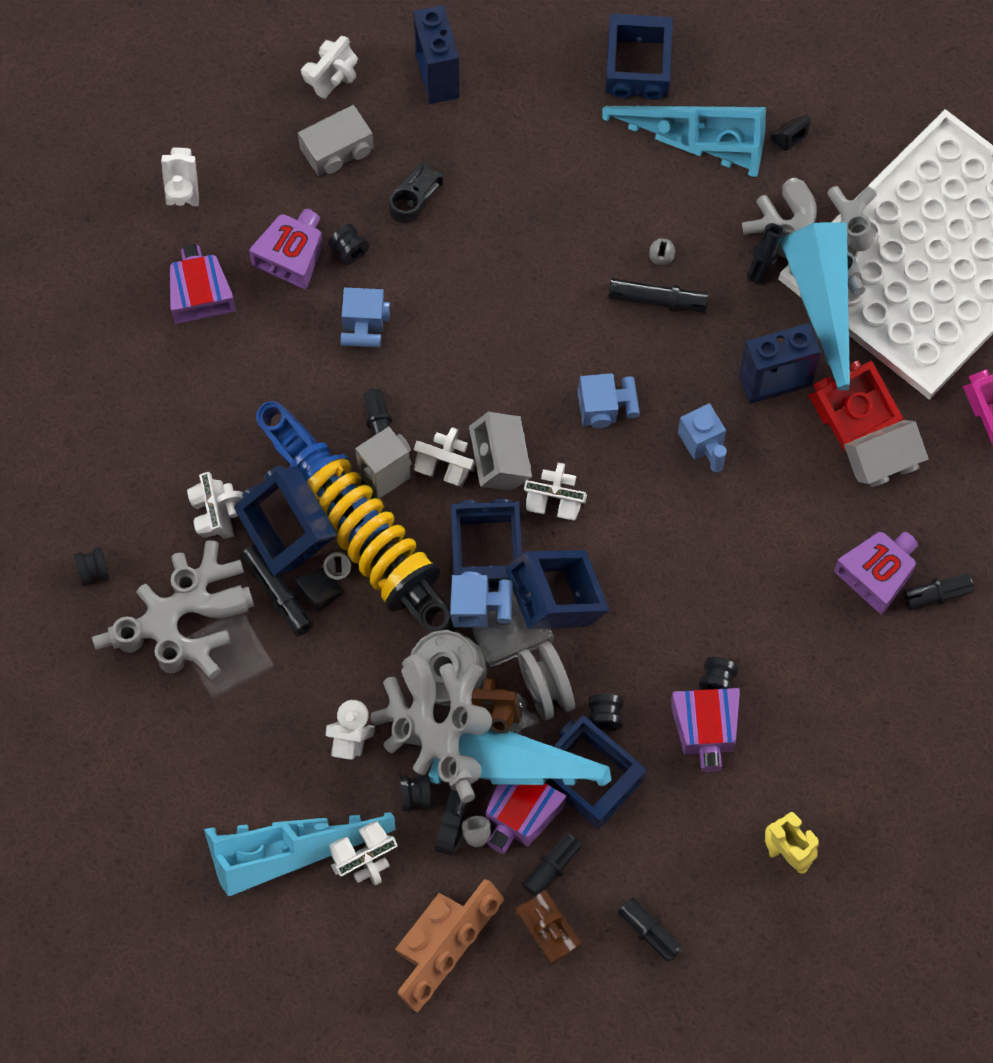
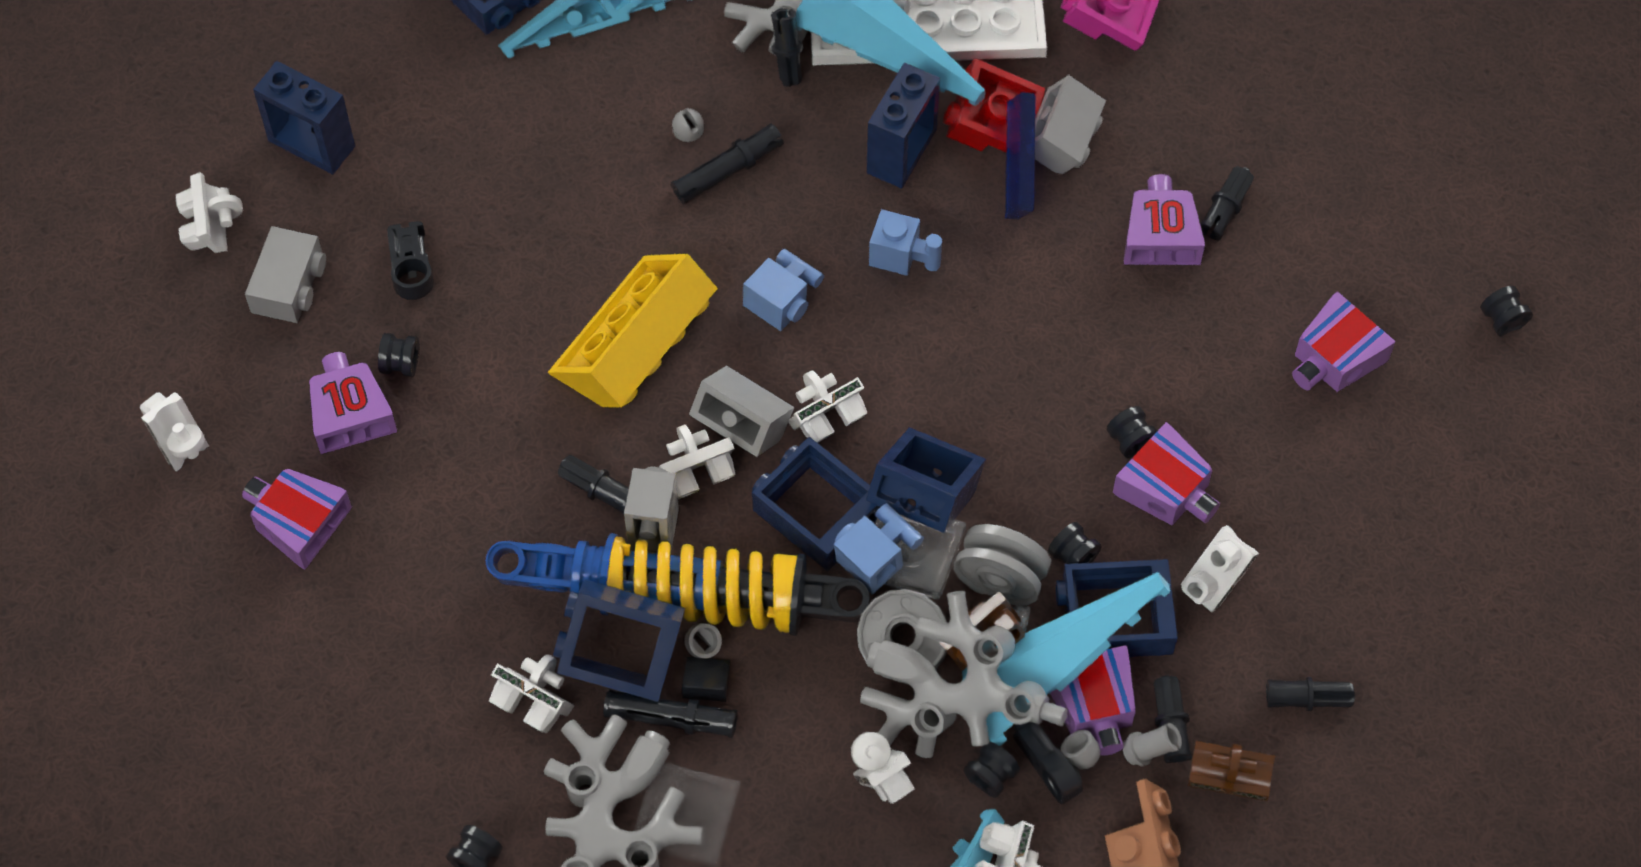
camera: 45 degrees left, 5 degrees down
(363, 313) = (480, 402): medium blue brick -> none
(495, 348) = (635, 329): none -> yellow slope
(516, 865) = (1141, 747): none -> light grey pin
(672, 805) = (1218, 569): none -> white hips
(787, 839) = (1347, 507): light yellow animal -> none
(834, 446) = (1020, 156): none -> clear blue tile
(905, 743) = (1340, 346): none -> torso

